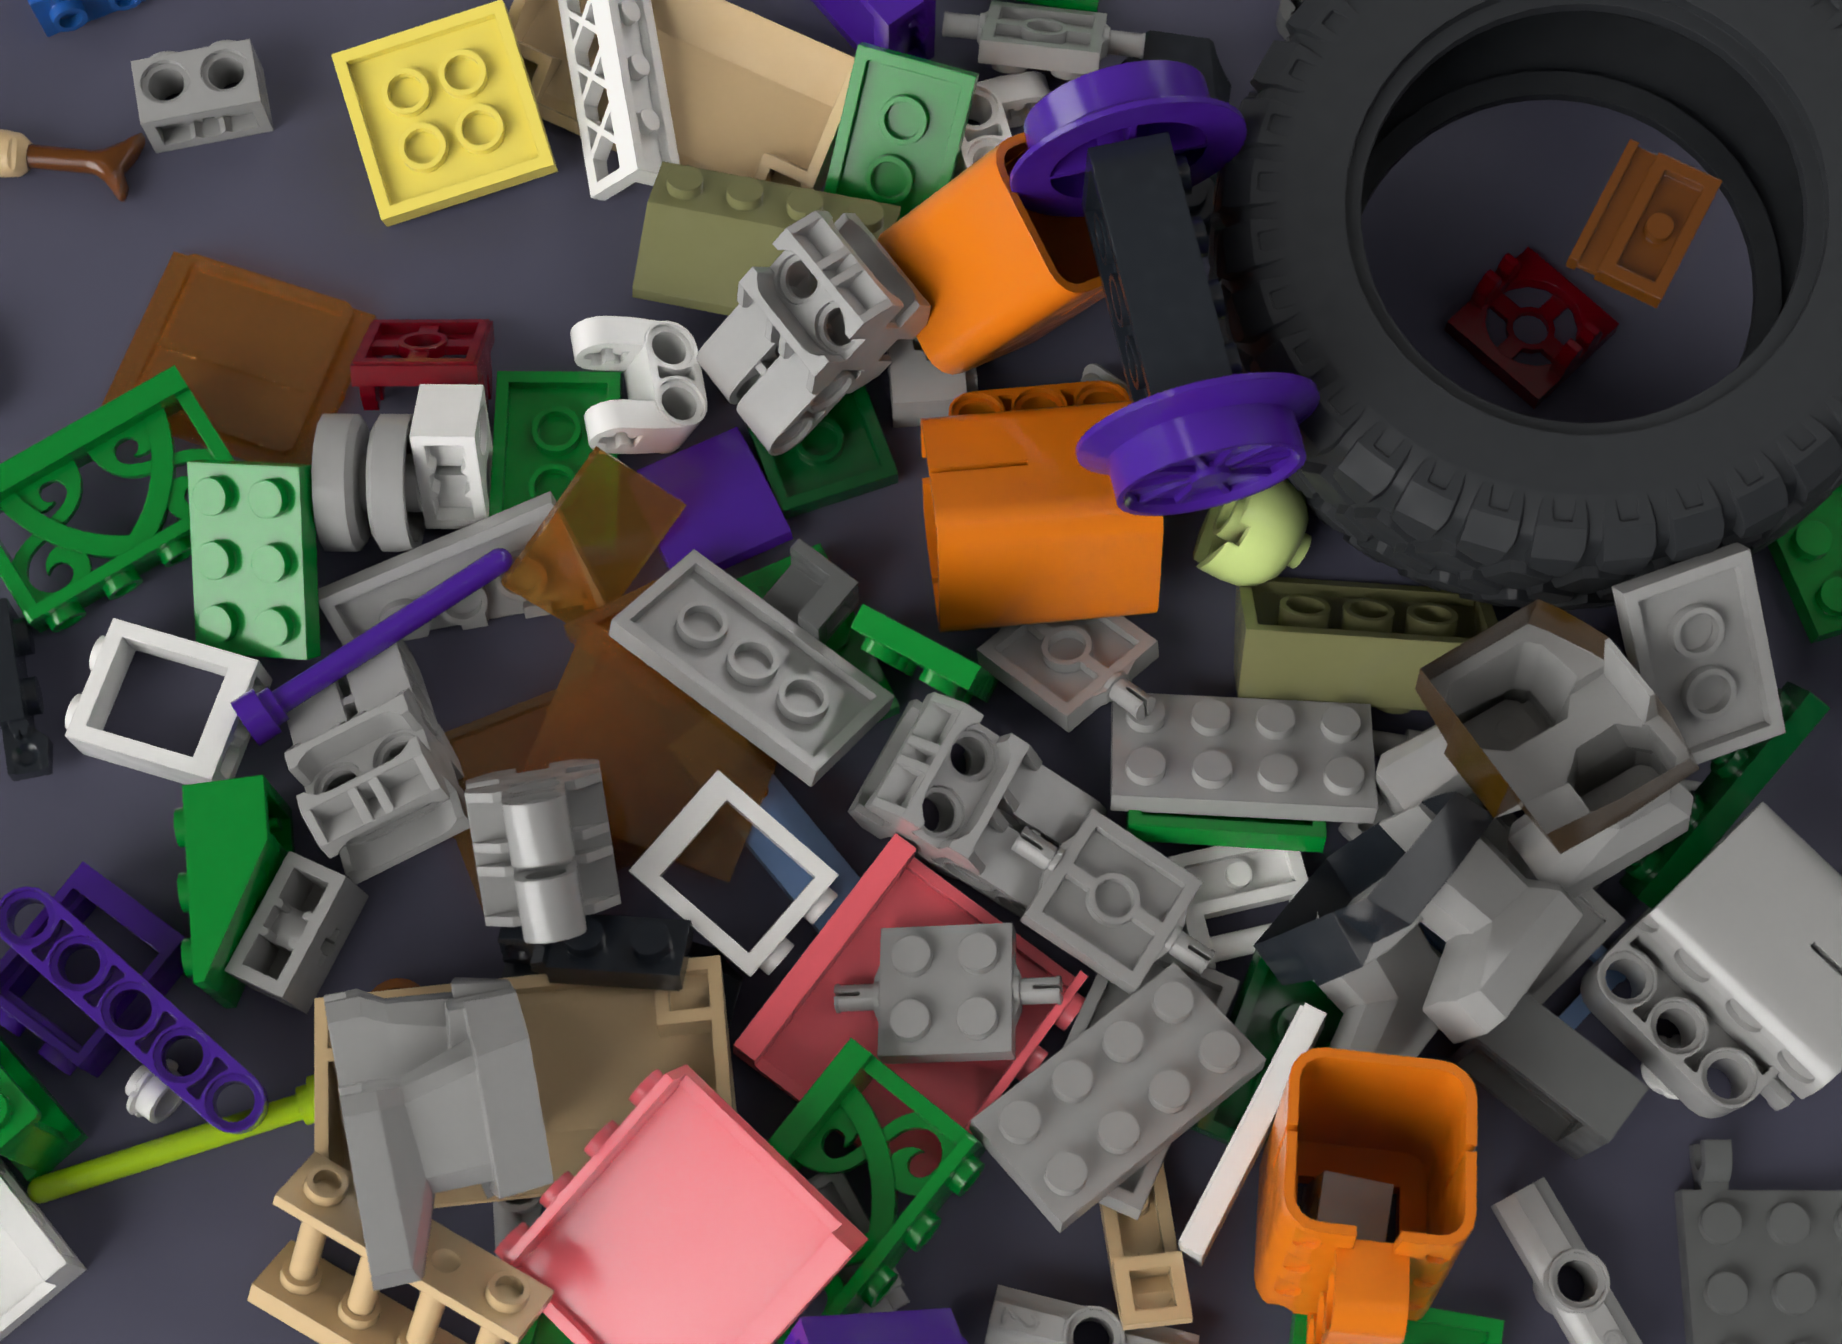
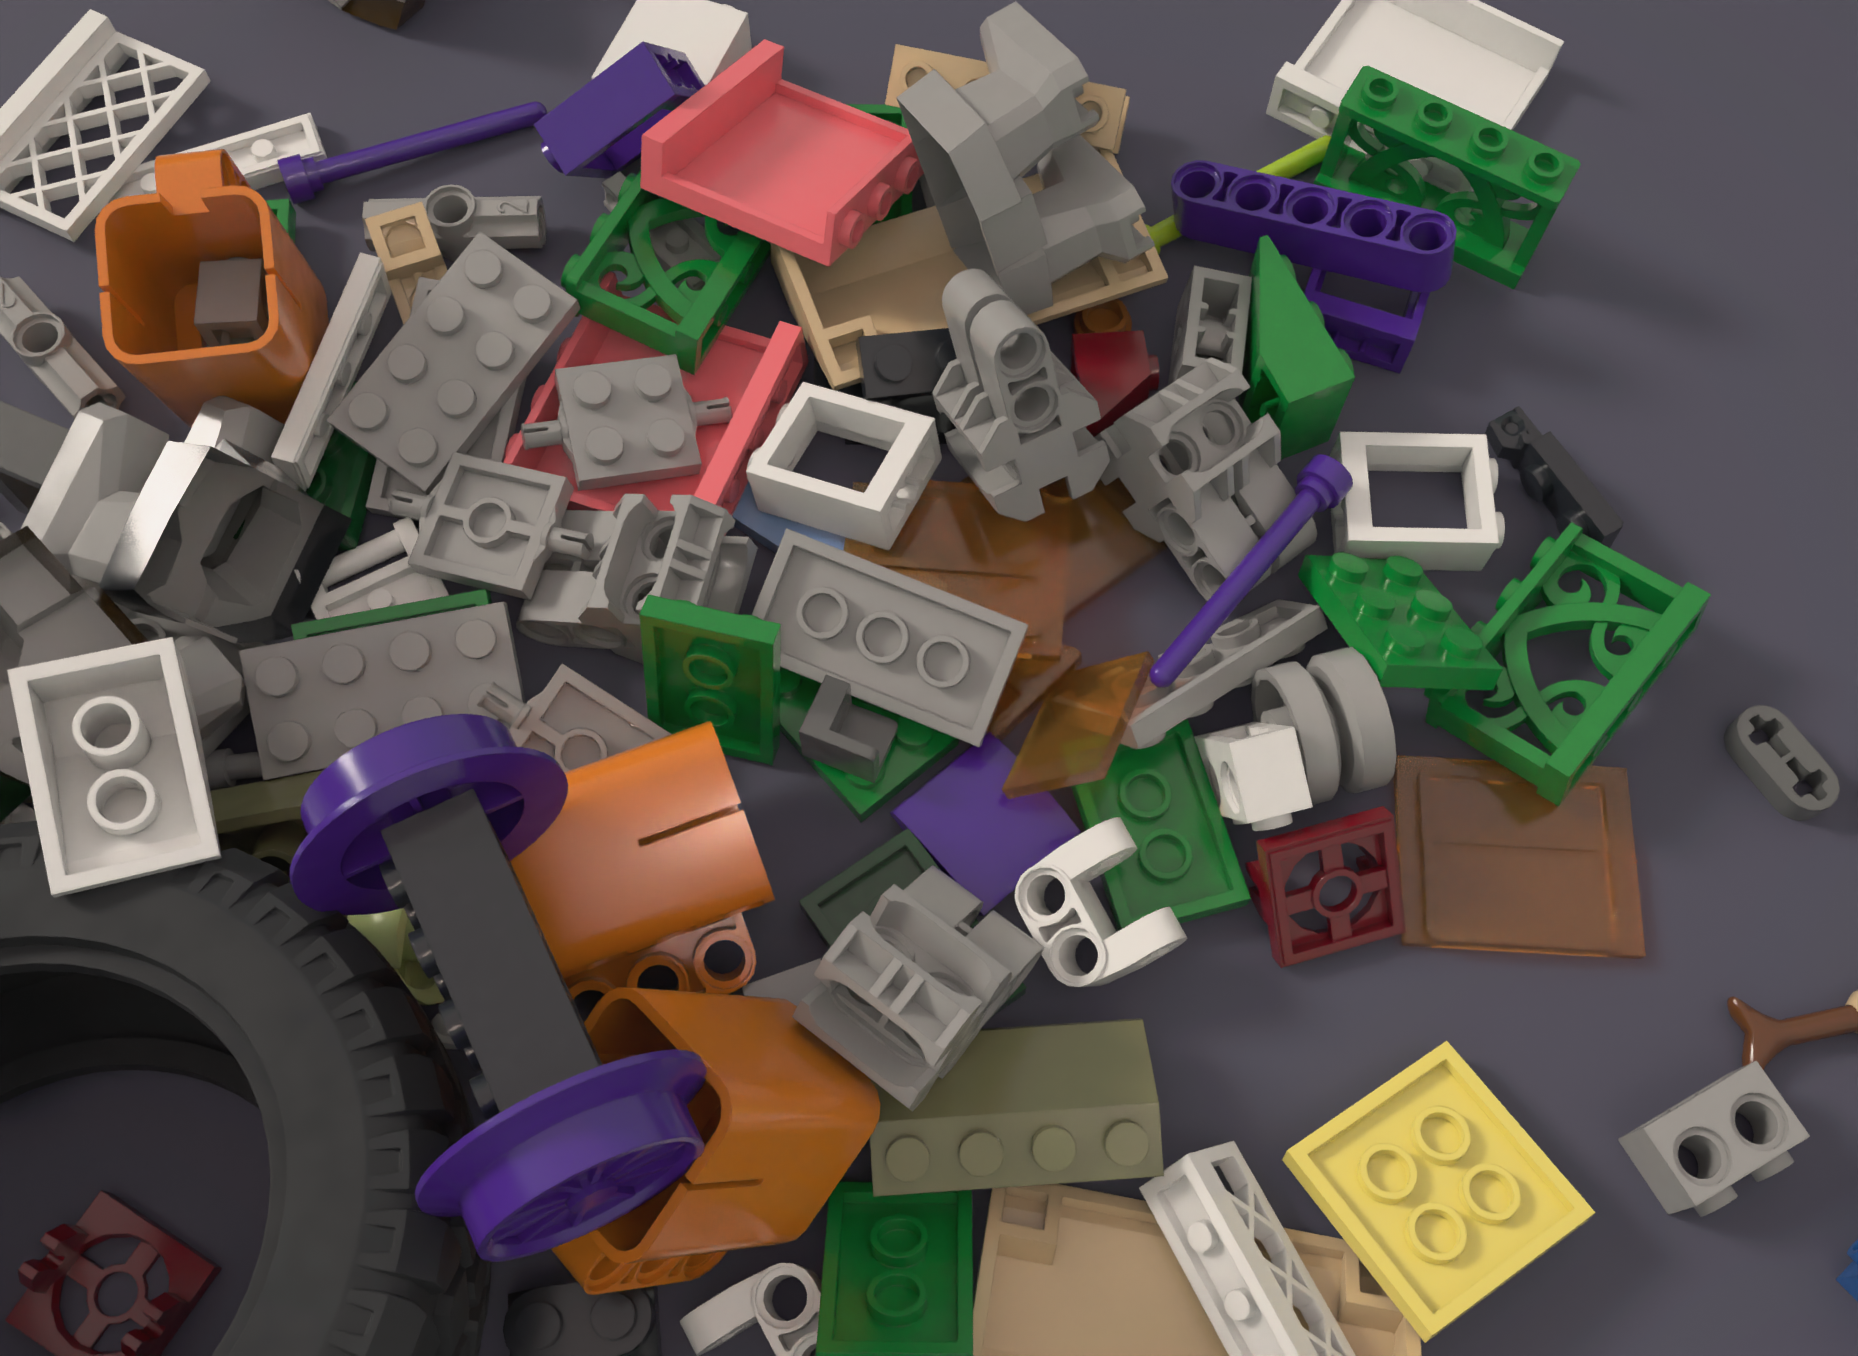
camera: 165 degrees right, 5 degrees down
(424, 911) = (1114, 371): none -> dark red slope
(1468, 568) = (114, 765): none -> white slope

